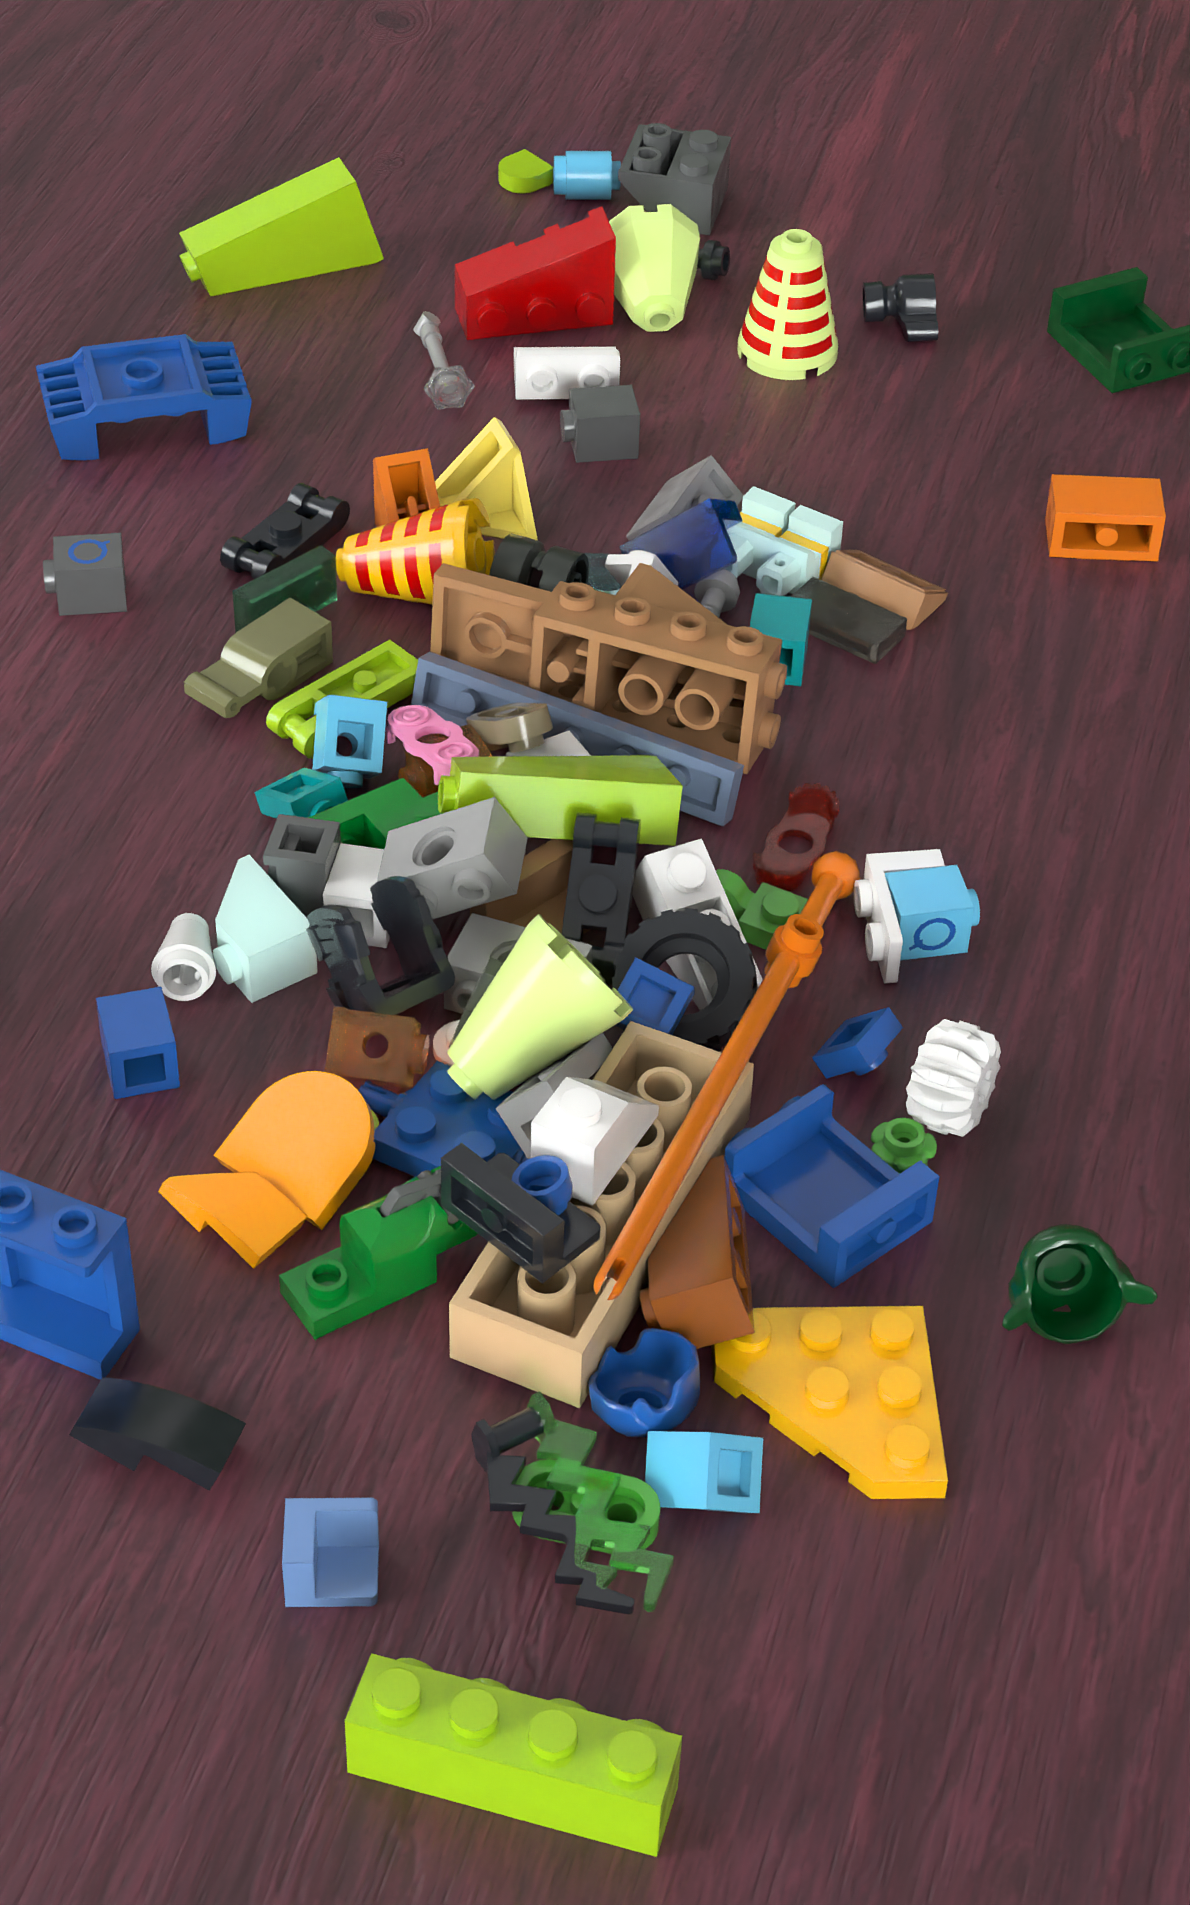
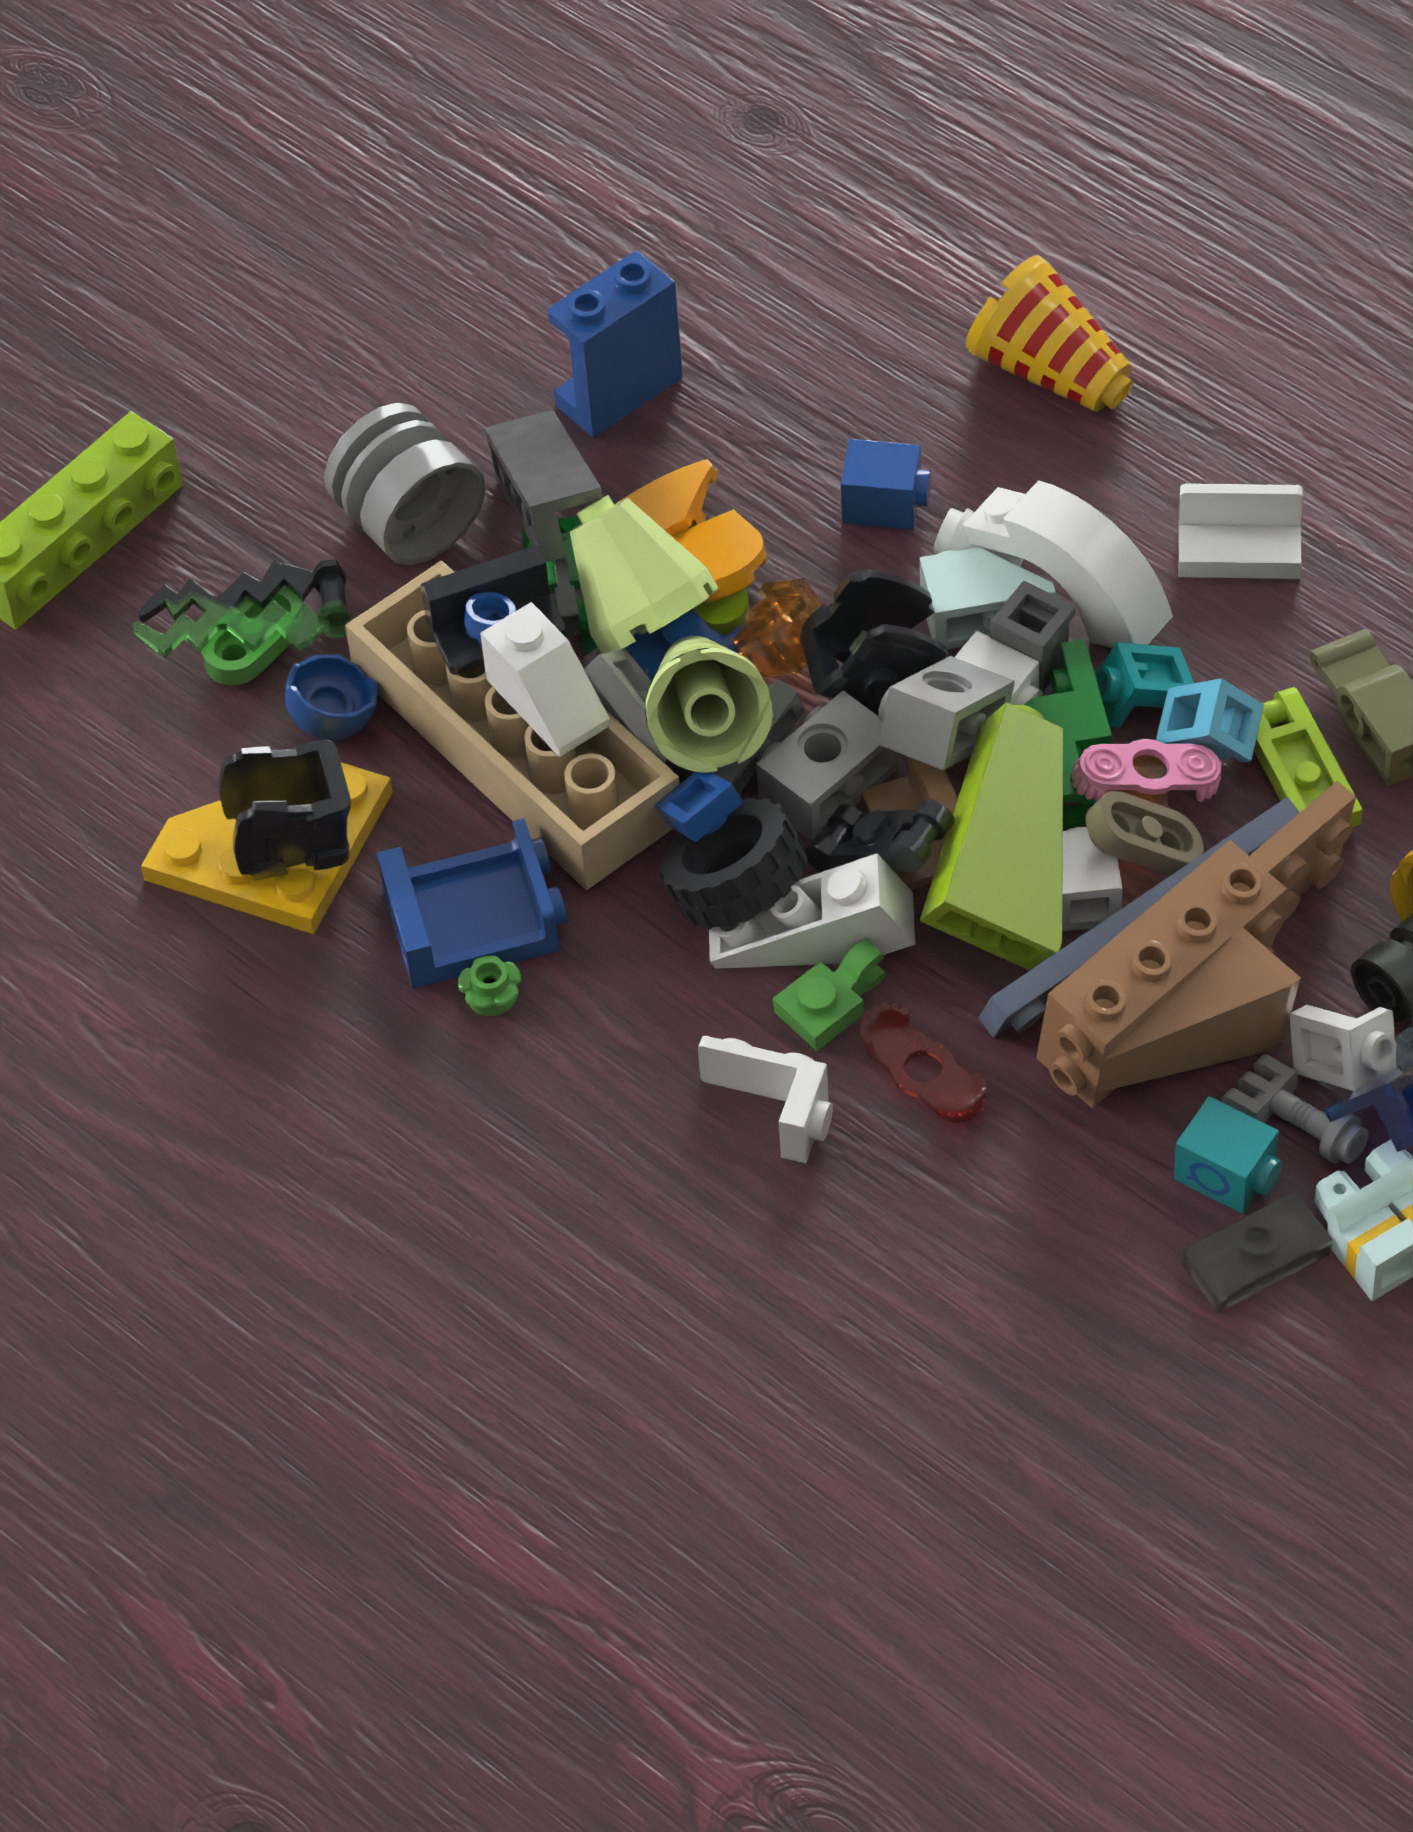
camera: 120 degrees right, 10 degrees up
(99, 793) = (1240, 531): none -> white panel
(177, 1431) = (473, 397): black slope -> none
(195, 848) = (1083, 553): none -> white arch
(297, 1250) = (540, 475): none -> dark grey panel
(330, 1552) = (299, 485): medium blue panel -> none
(333, 1403) = (404, 483): none -> light grey wheel
(426, 1101) = (633, 573): none -> yellowish green cone
(703, 1265) = (424, 772): dark orange slope -> none
(705, 1470) = (238, 712): medium azure panel -> none
(790, 957) = (844, 1056): orange bar -> none
(857, 1276) = (286, 808): none -> black piece
(858, 1044) = (615, 988): blue plate -> none
(884, 585) = (1304, 1318): medium nougat slope -> none
(933, 911) = (749, 1112): medium azure brick -> none
(953, 1077) = (518, 1021): white gear -> none
(1072, 1269) = (264, 1017): dark green hair -> none
(1105, 518) = (1318, 1580): orange brick -> none

